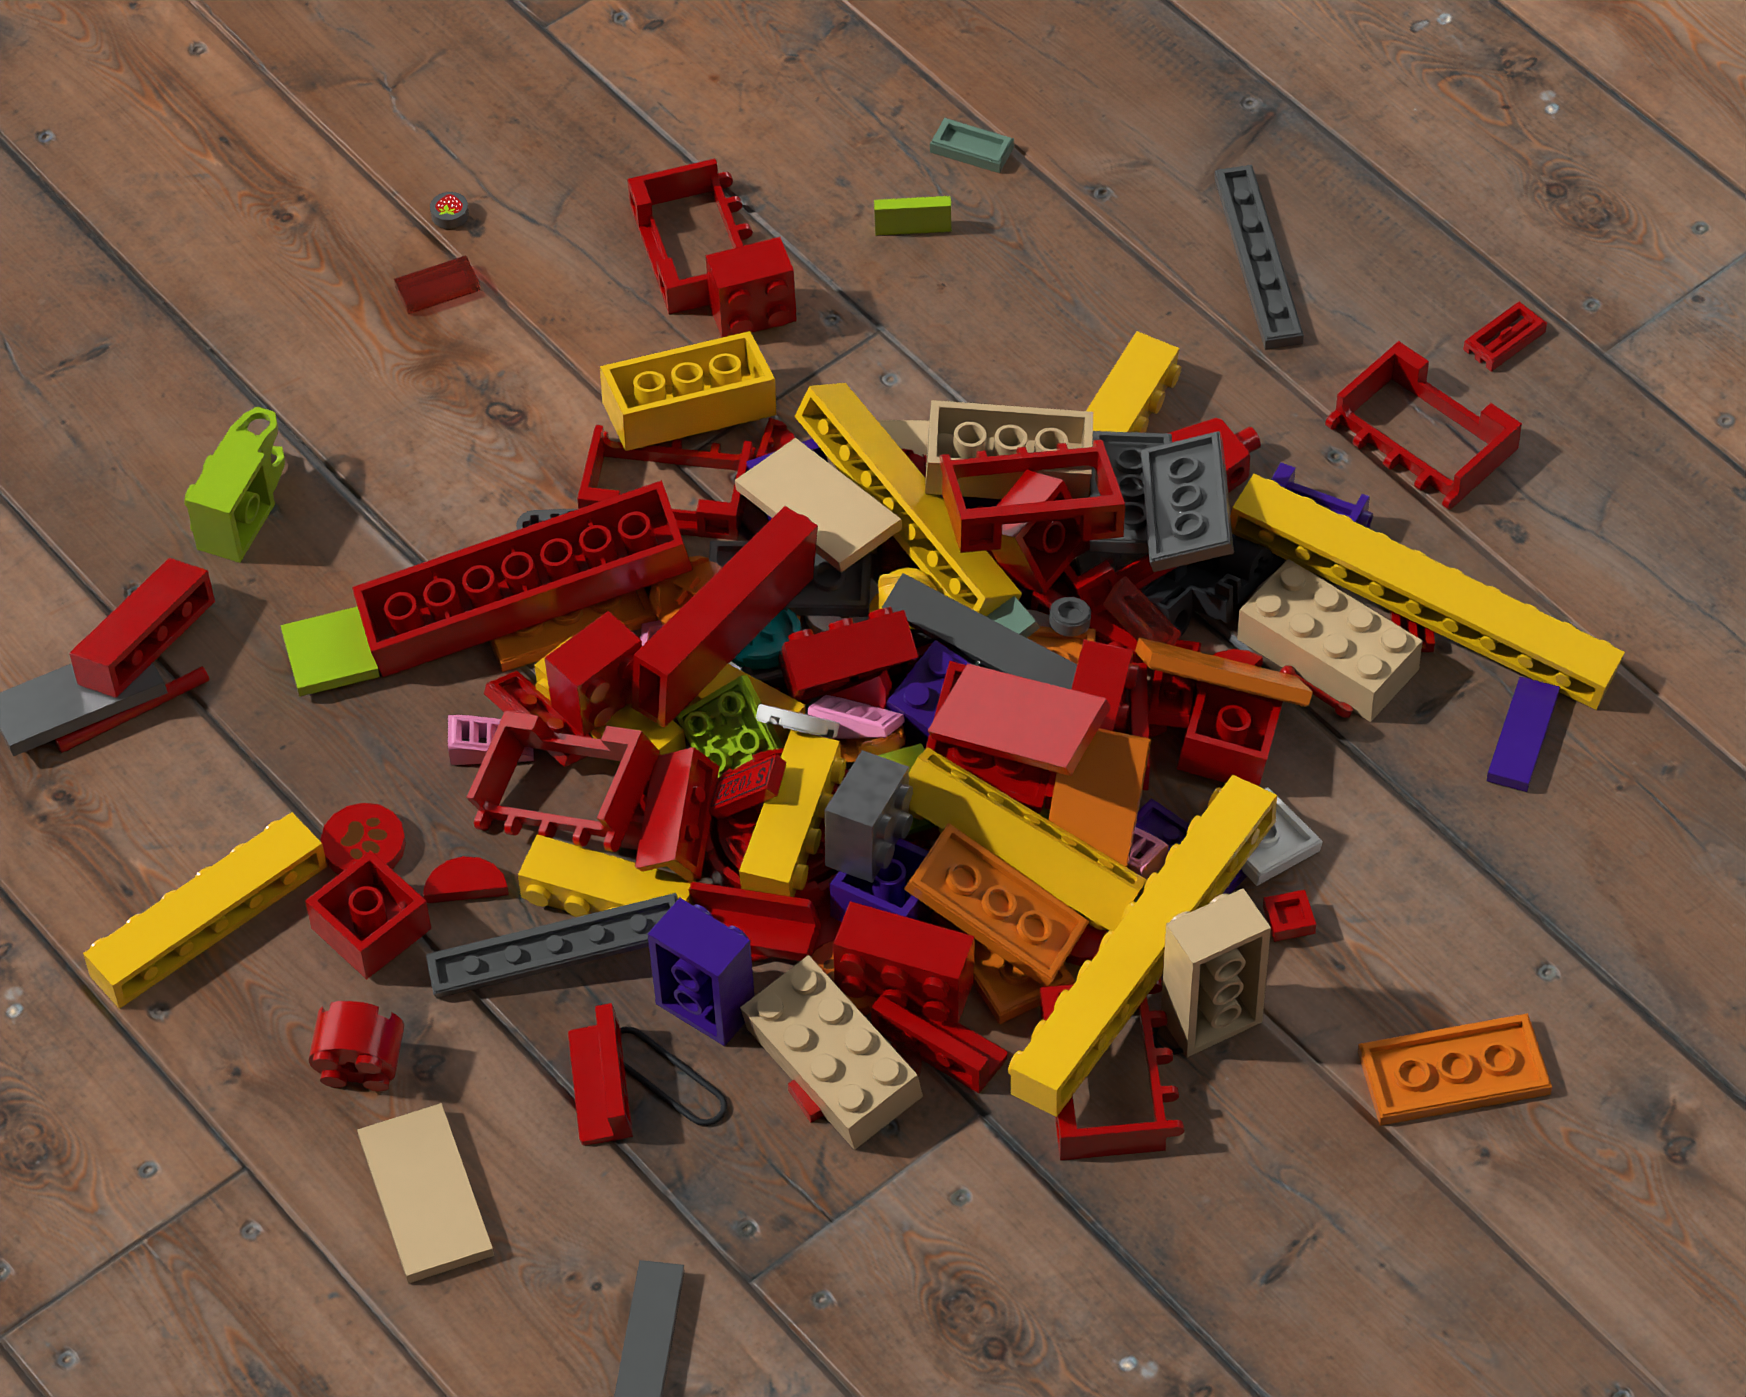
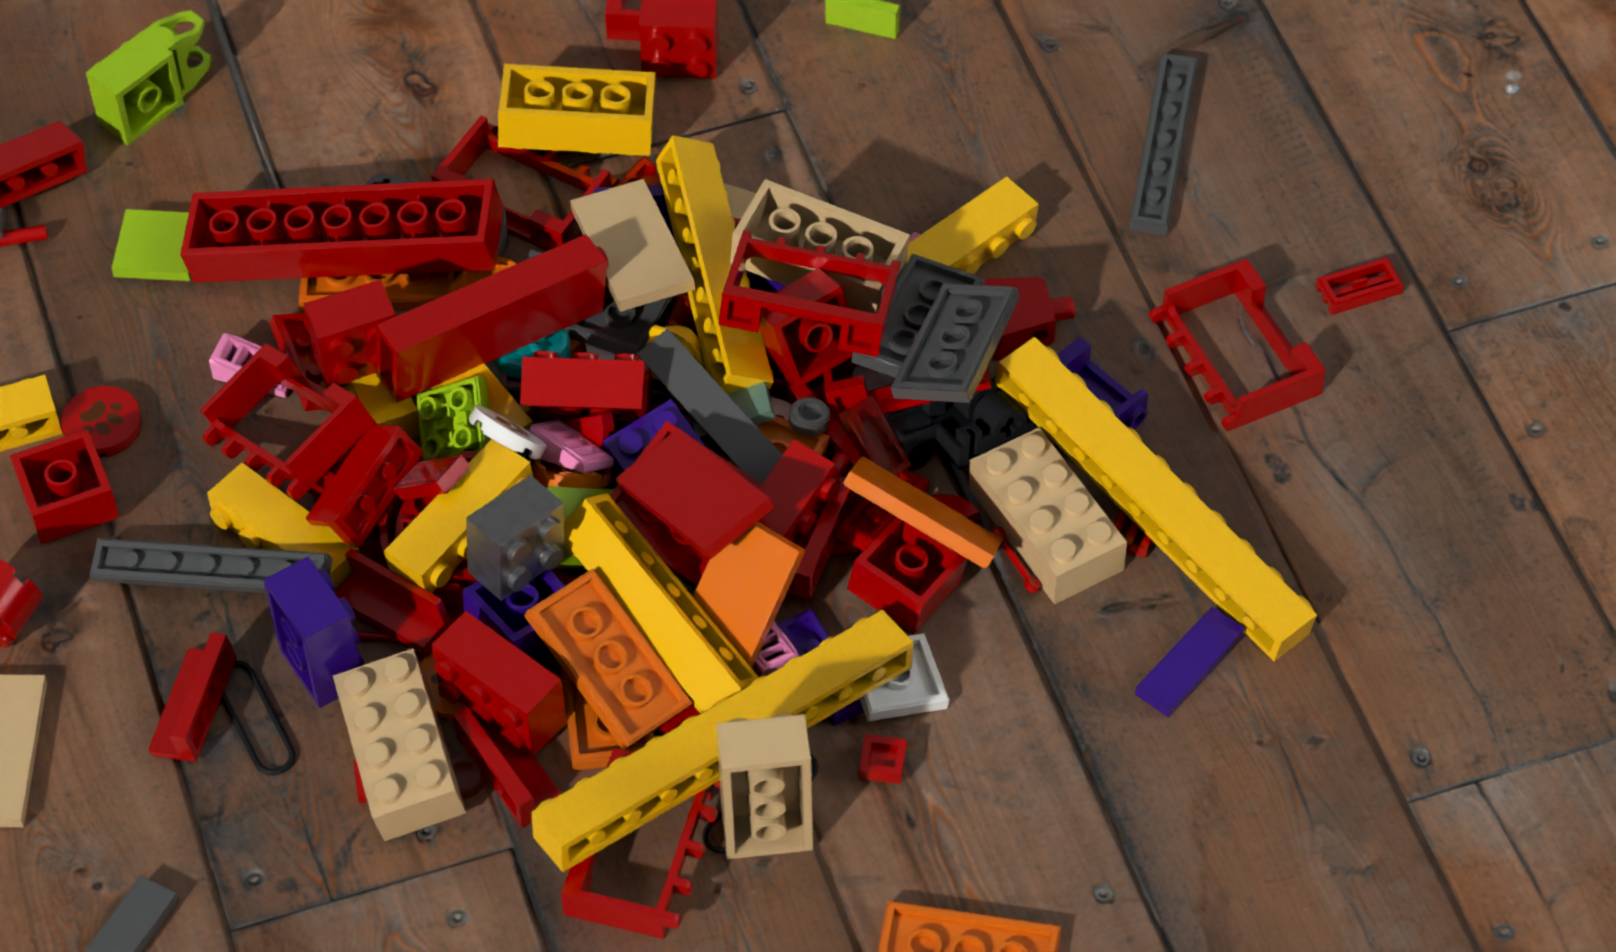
camera: 20 degrees right, 0 degrees up
(464, 879) = (168, 483): red tile -> none

